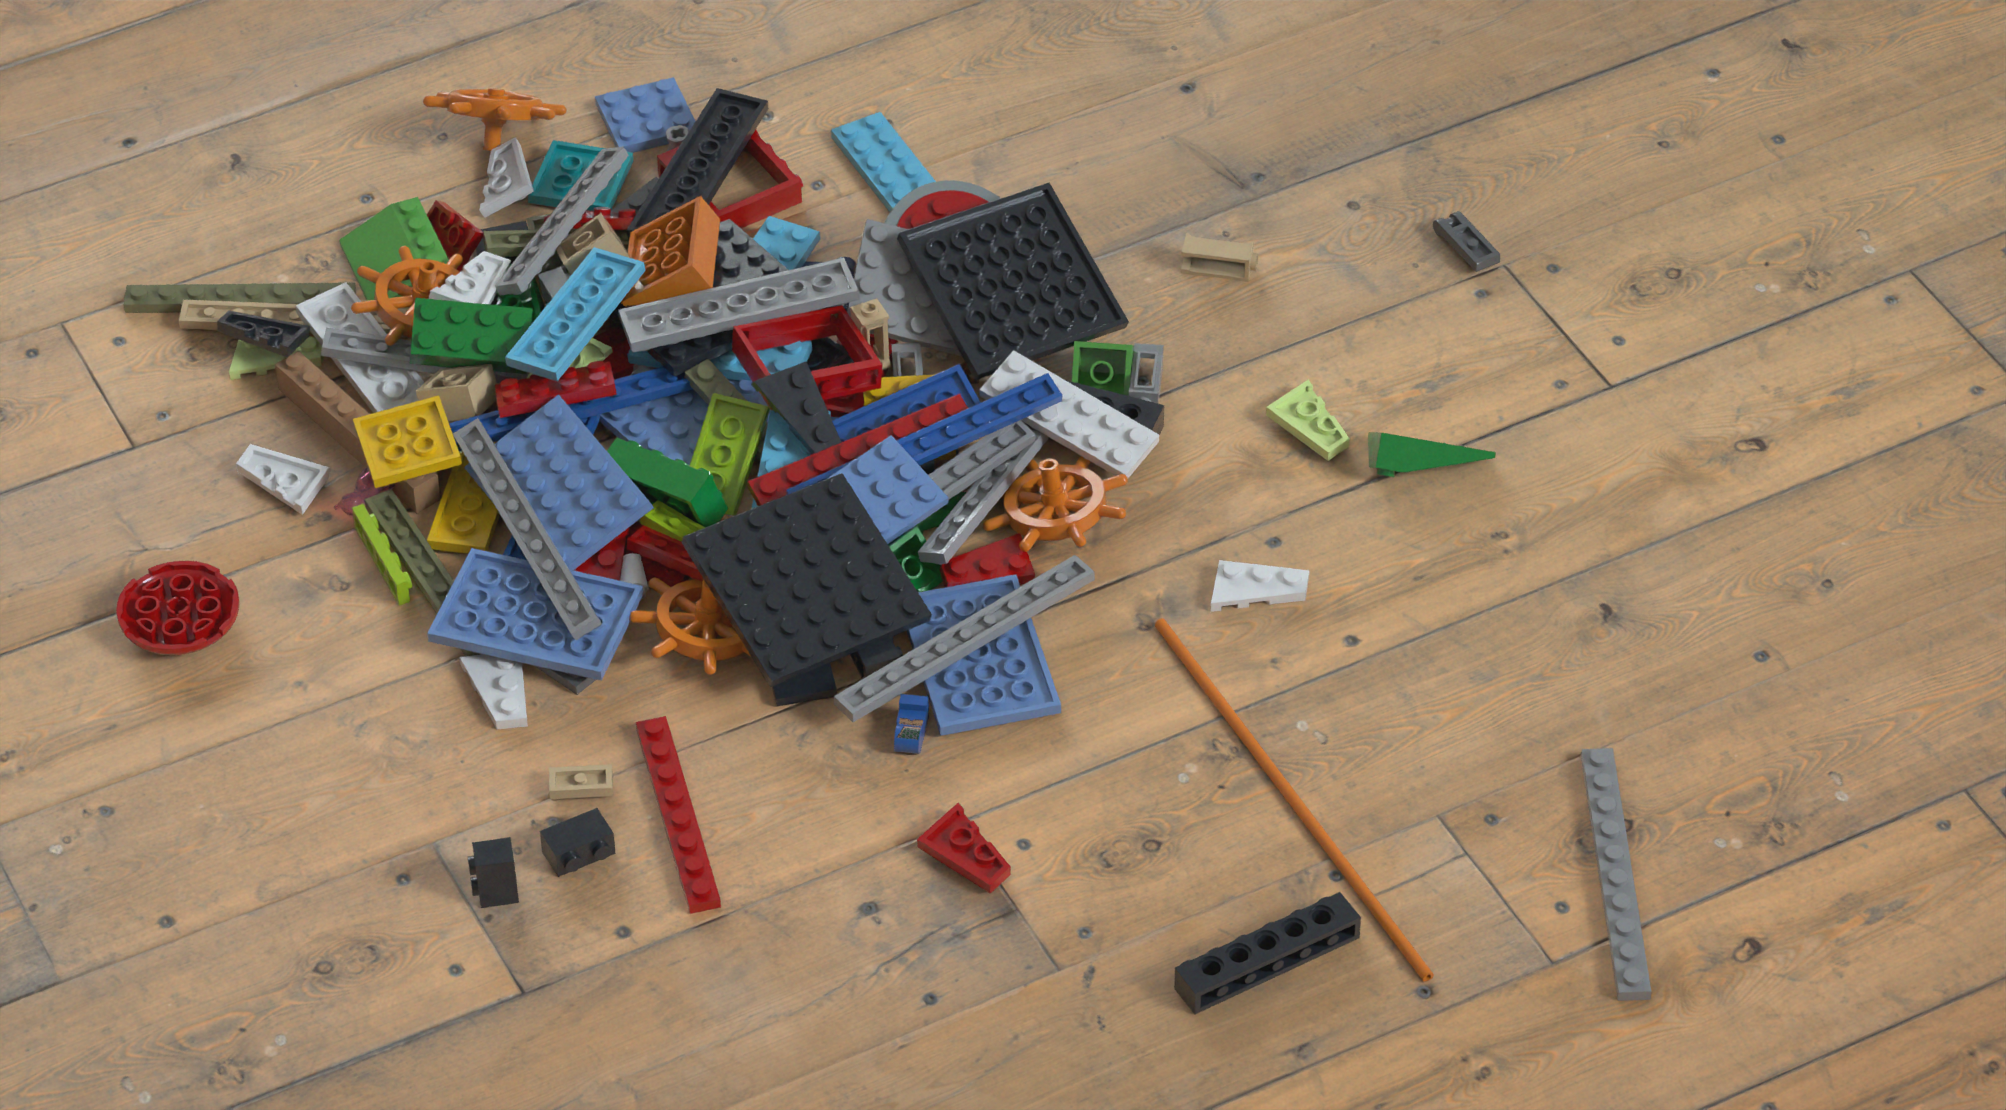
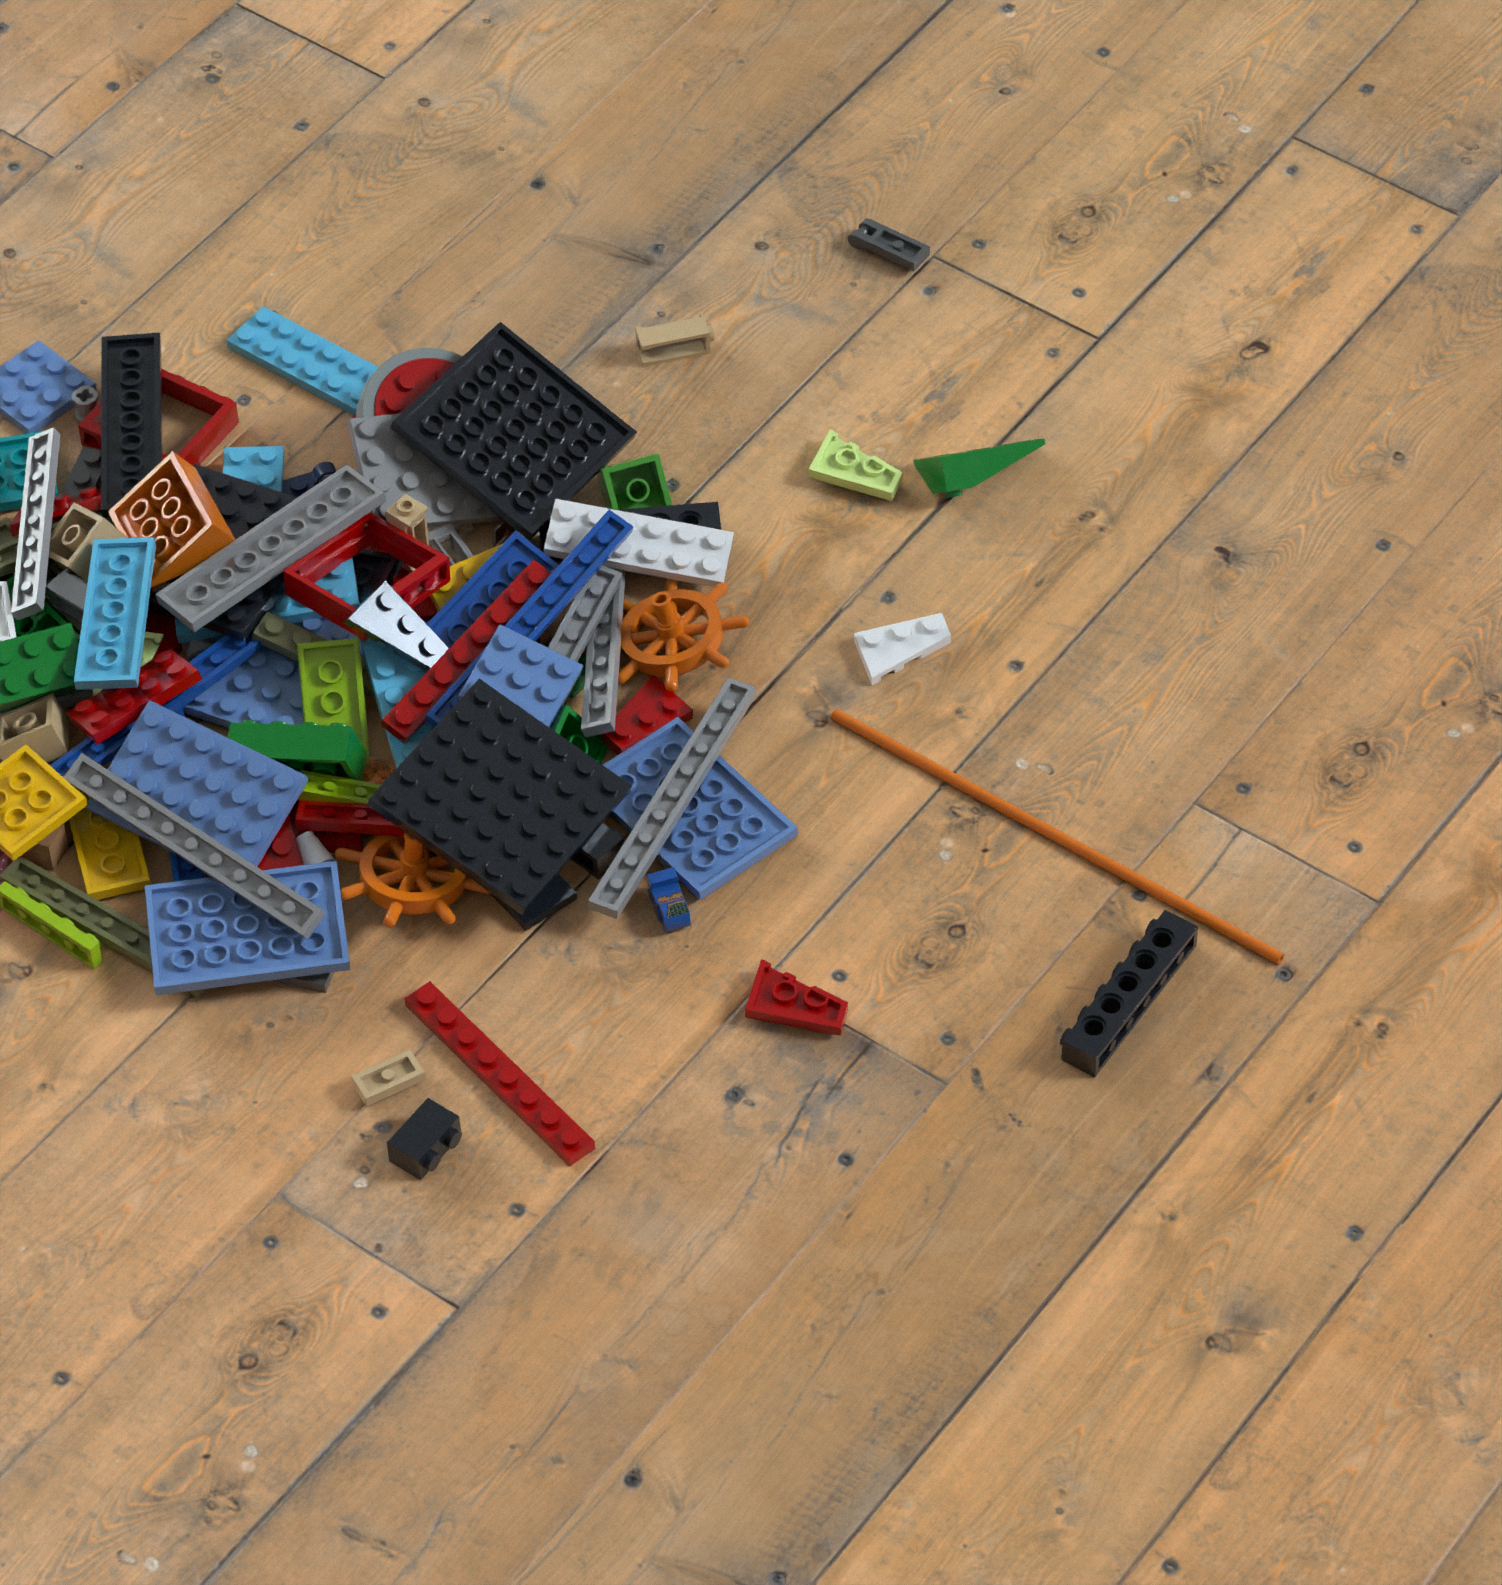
camera: 25 degrees left, 5 degrees up
(494, 872) = (369, 1201): black brick -> none
(500, 688) = (248, 1013): white wing -> none
(1147, 393) = (695, 492): light grey window -> none
(1615, 875) = (1385, 798): light grey plate -> none

